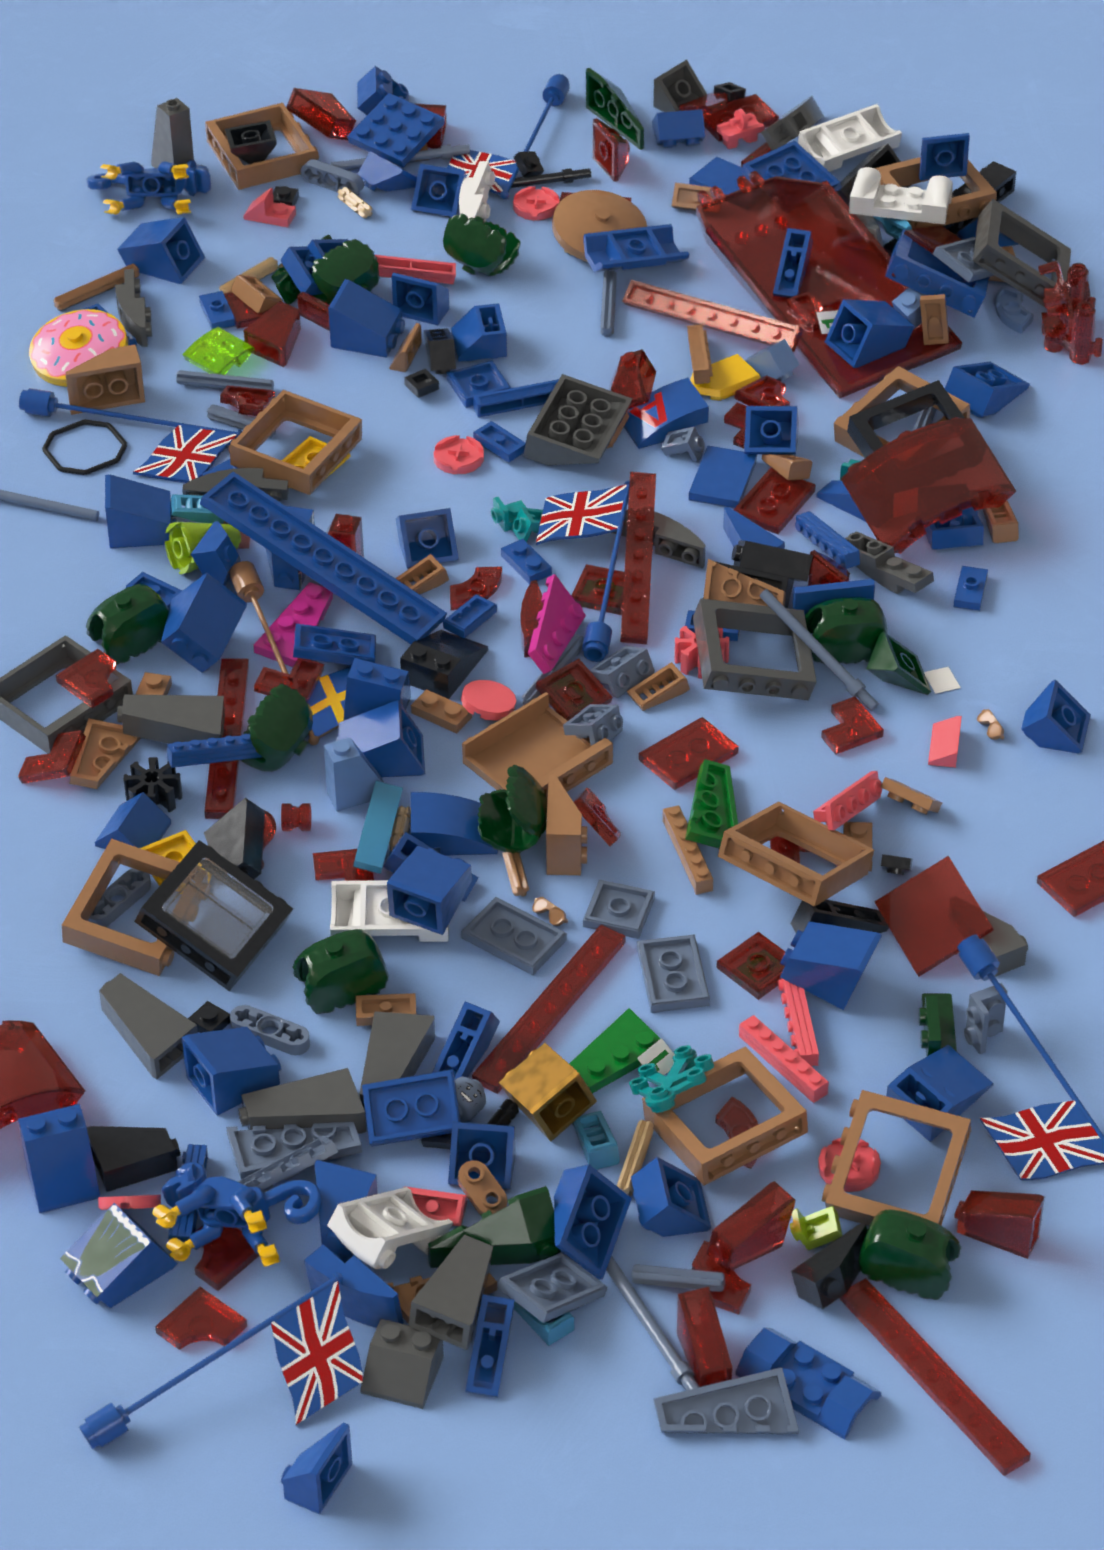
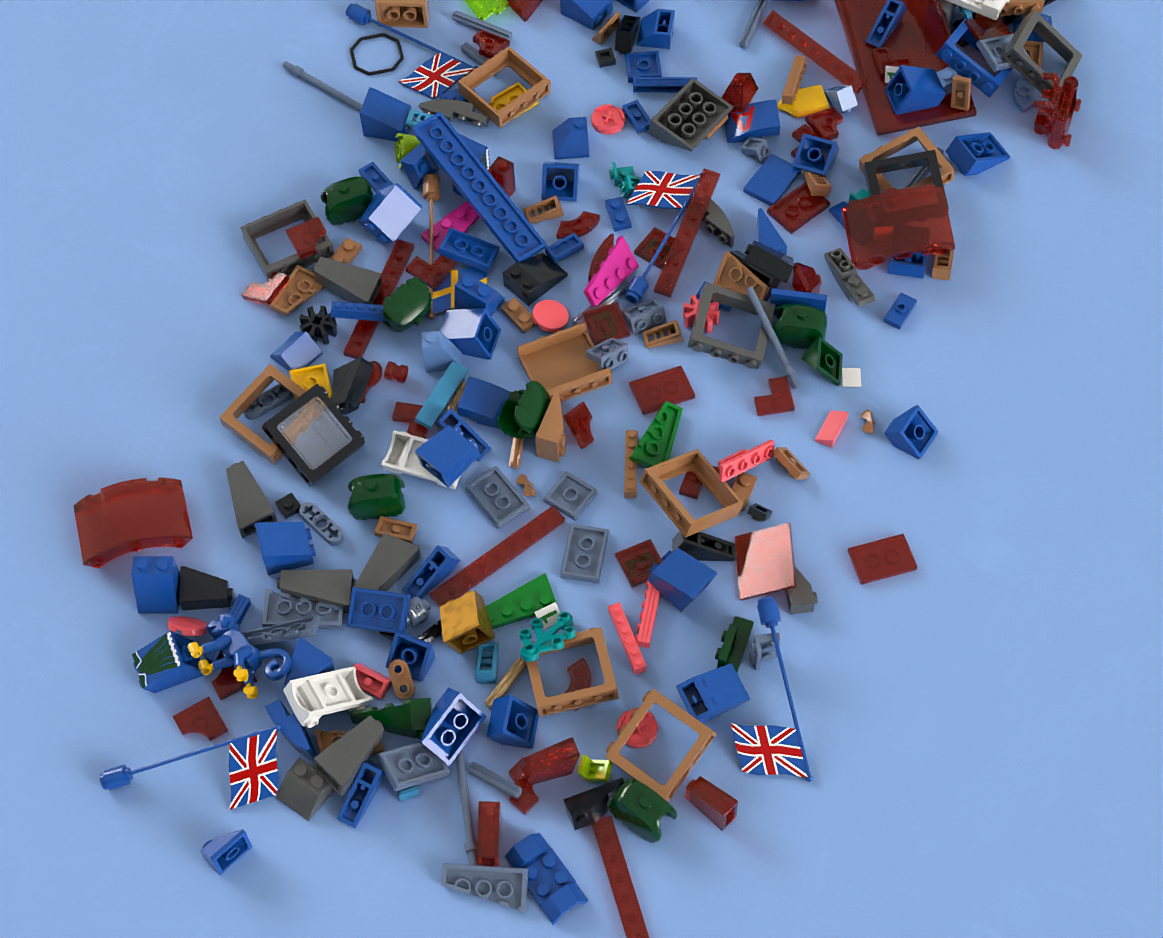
camera: 20 degrees right, 15 degrees up
(419, 485) = (571, 139): none -> blue slope
(827, 540) = (817, 250): blue piece -> none

